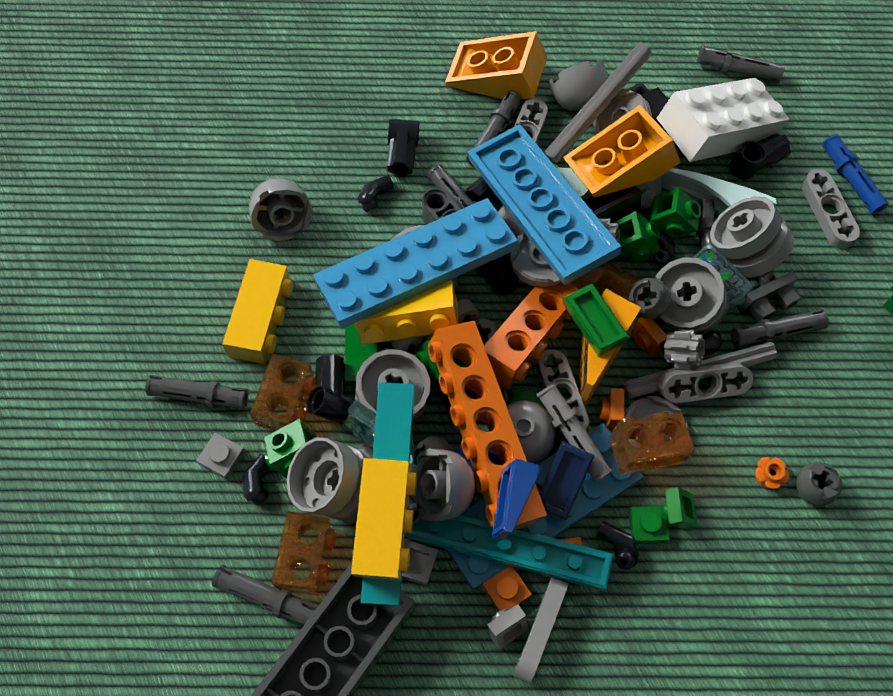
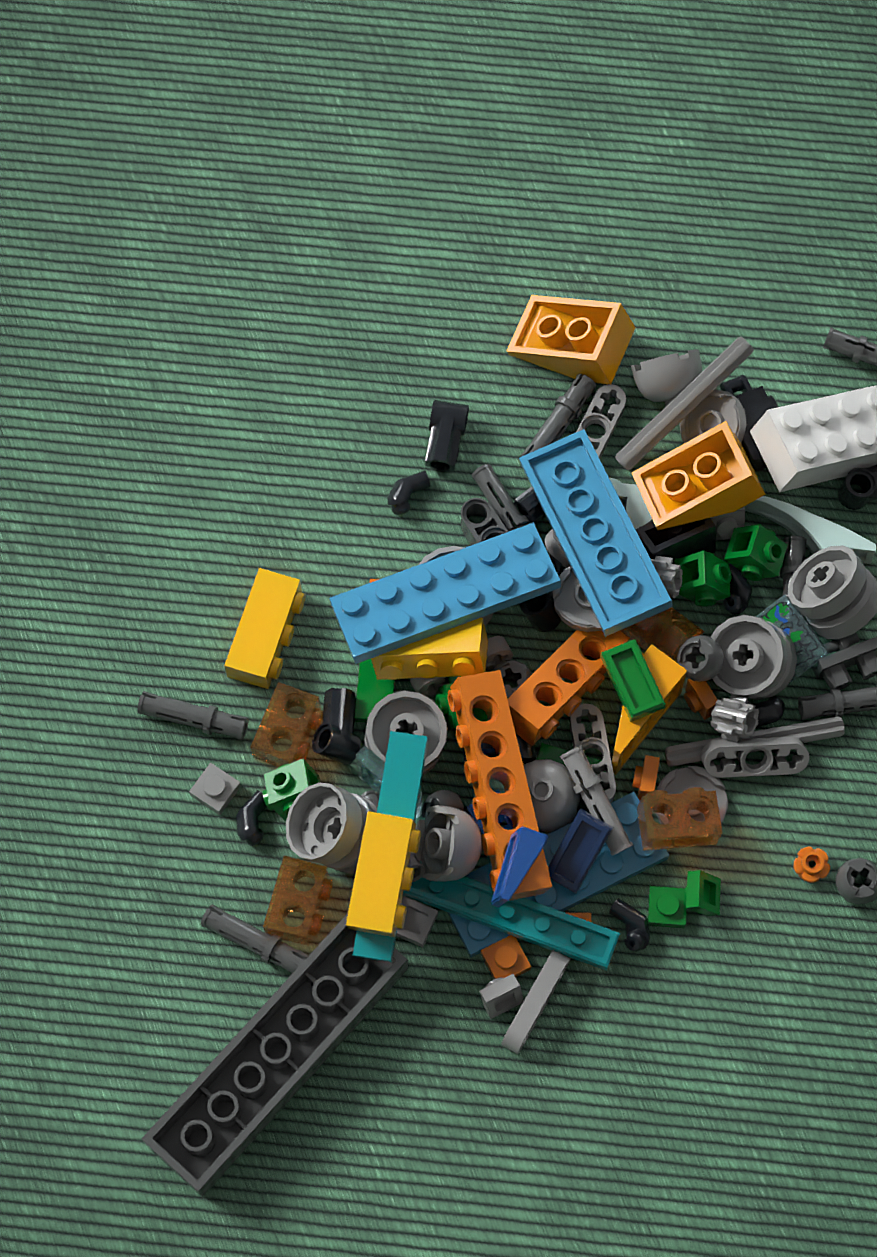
camera: 10 degrees right, 5 degrees up
(279, 209) = (296, 506): light grey cylinder -> none

